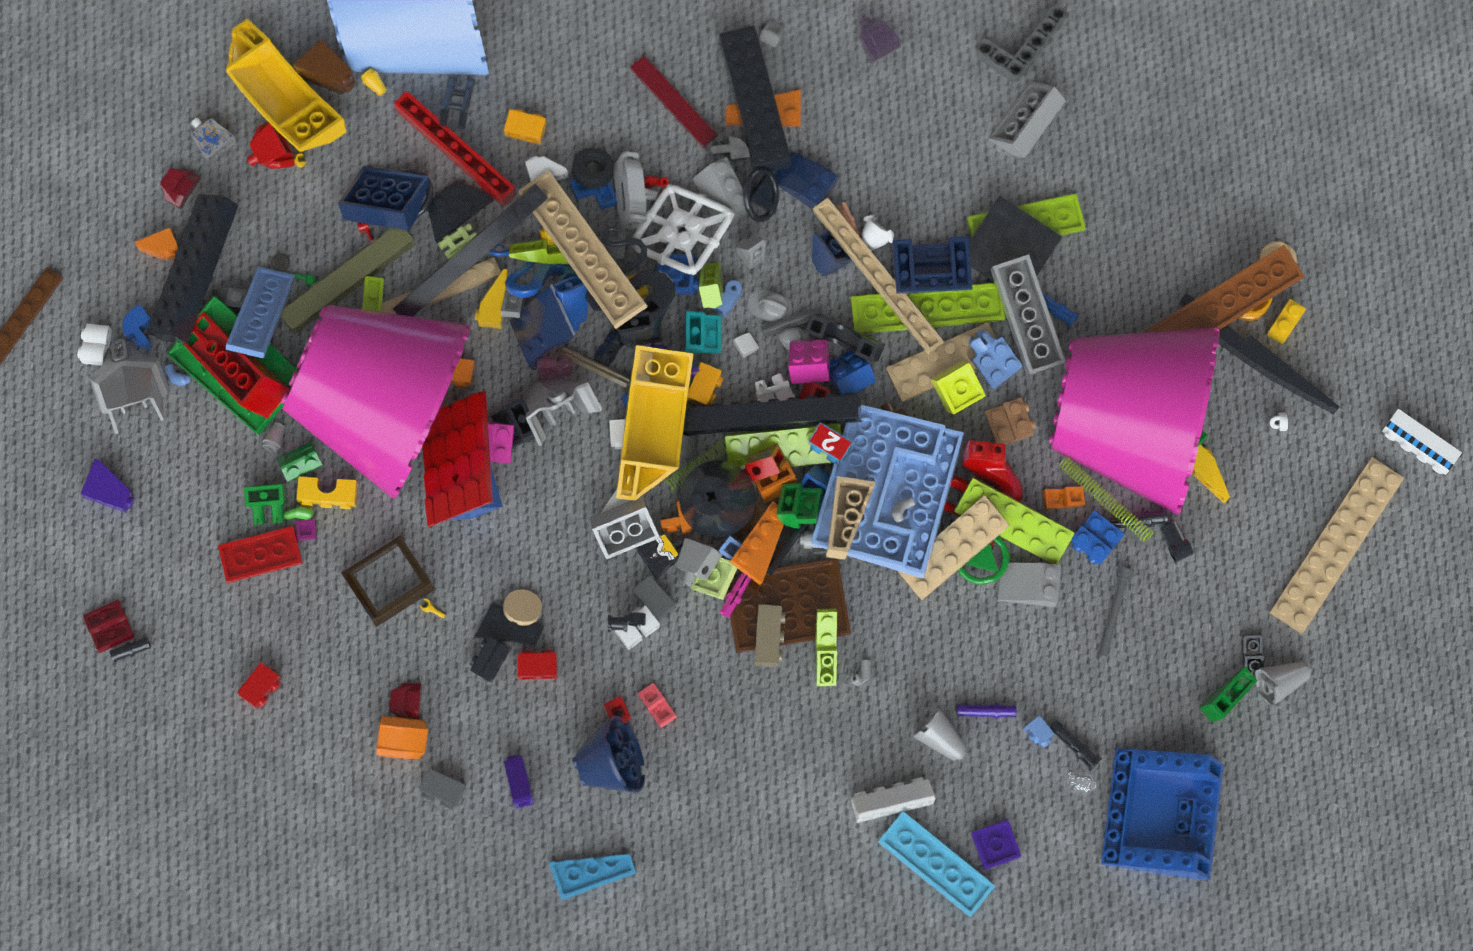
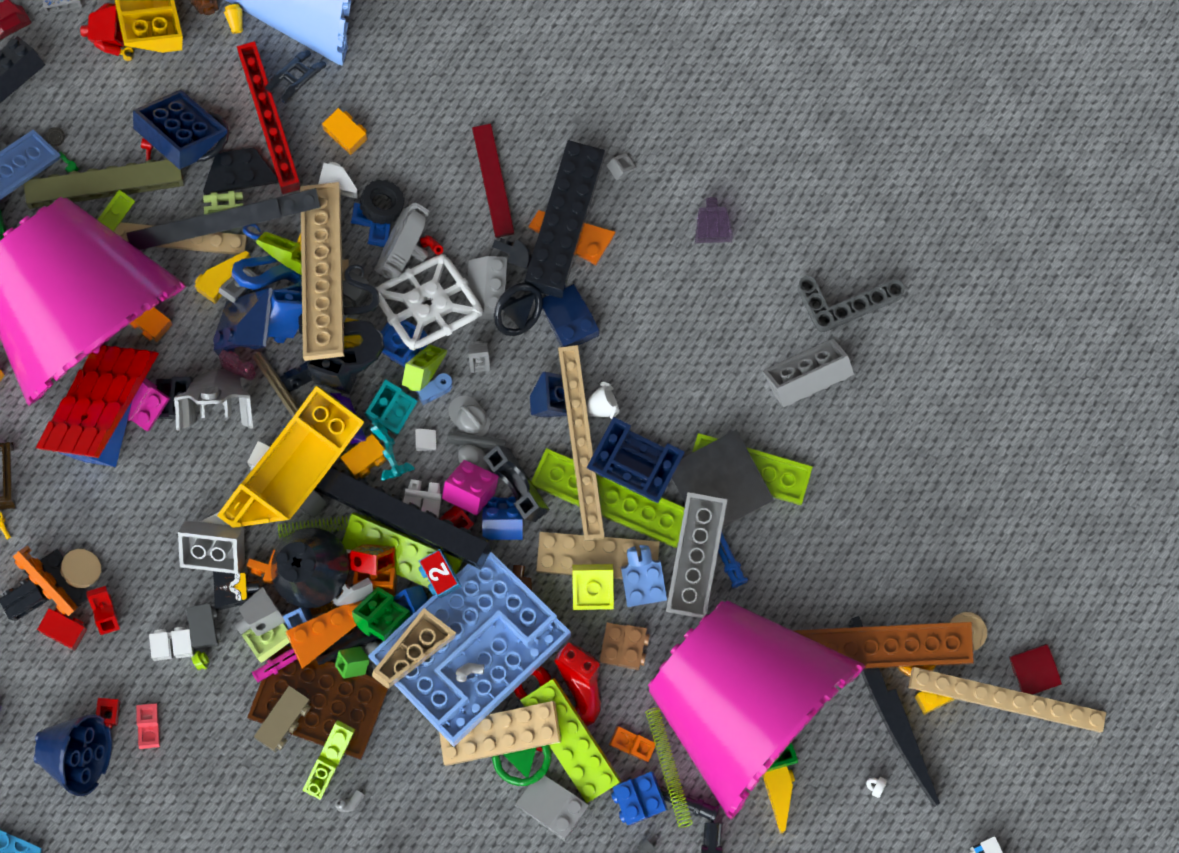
camera: 30 degrees right, 0 degrees up
(529, 643) = (45, 580): none -> orange wing
(563, 630) = (103, 610): none -> red brick
(622, 623) = (157, 633): black connector -> none
(669, 627) = (200, 660): none -> lime plate
(706, 355) = (382, 433): none -> teal piece
(769, 498) = (355, 593): none -> light grey slope
(797, 557) = (352, 662): none -> bright green brick
(848, 217) = (587, 375): nougat pin -> none
(1343, 294) = (1007, 699): none -> tan plate
(1350, 260) = (1035, 670): none -> dark red slope

